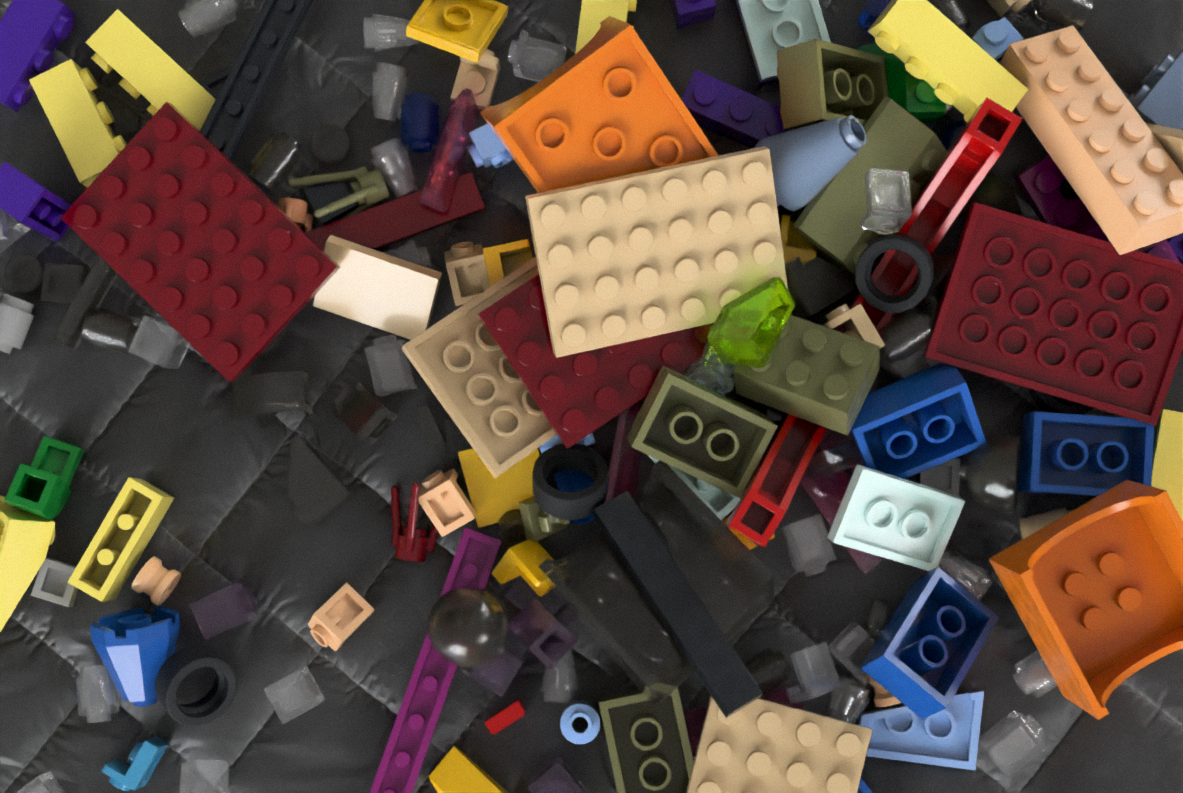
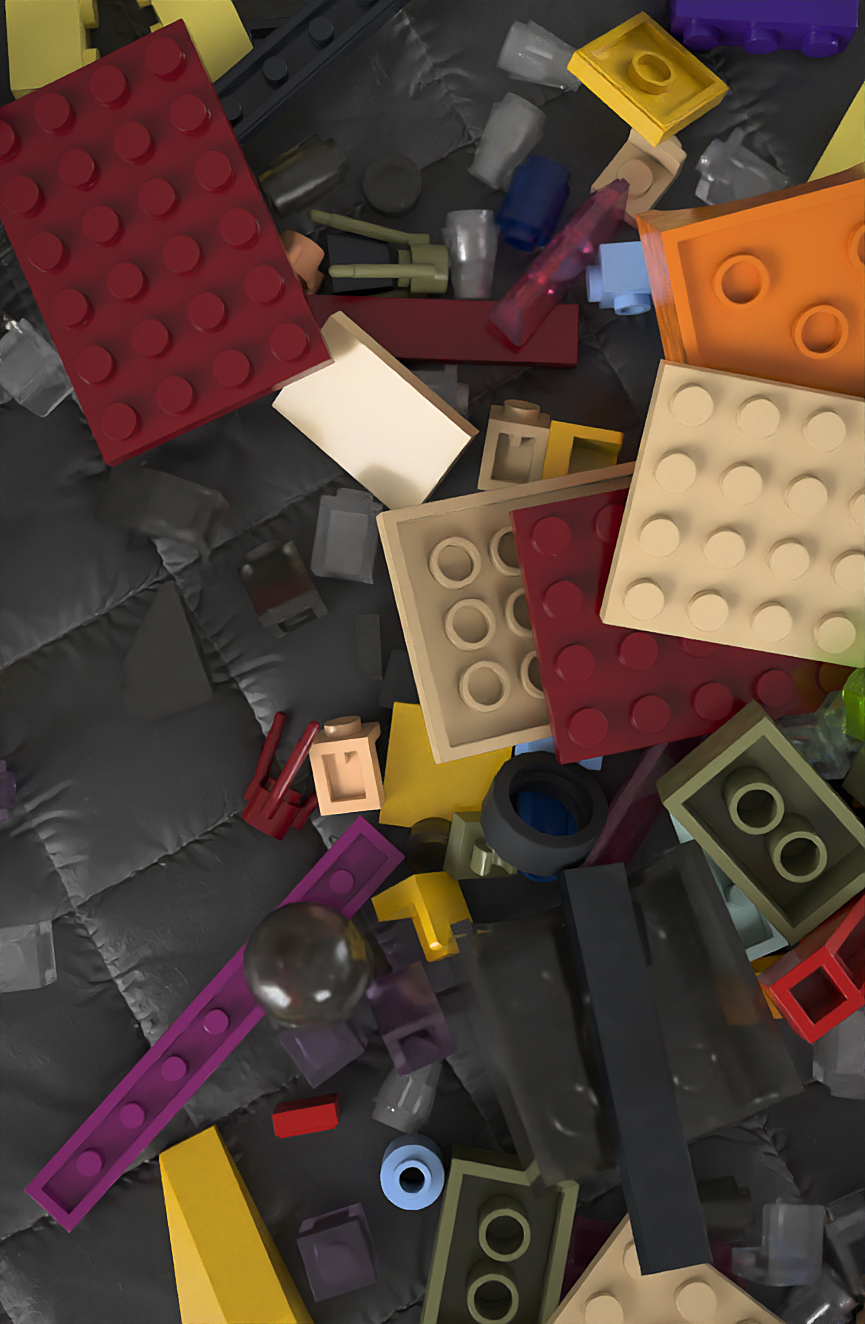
camera: 25 degrees right, 0 degrees up
(339, 617) = (125, 870): light nougat bracket -> none

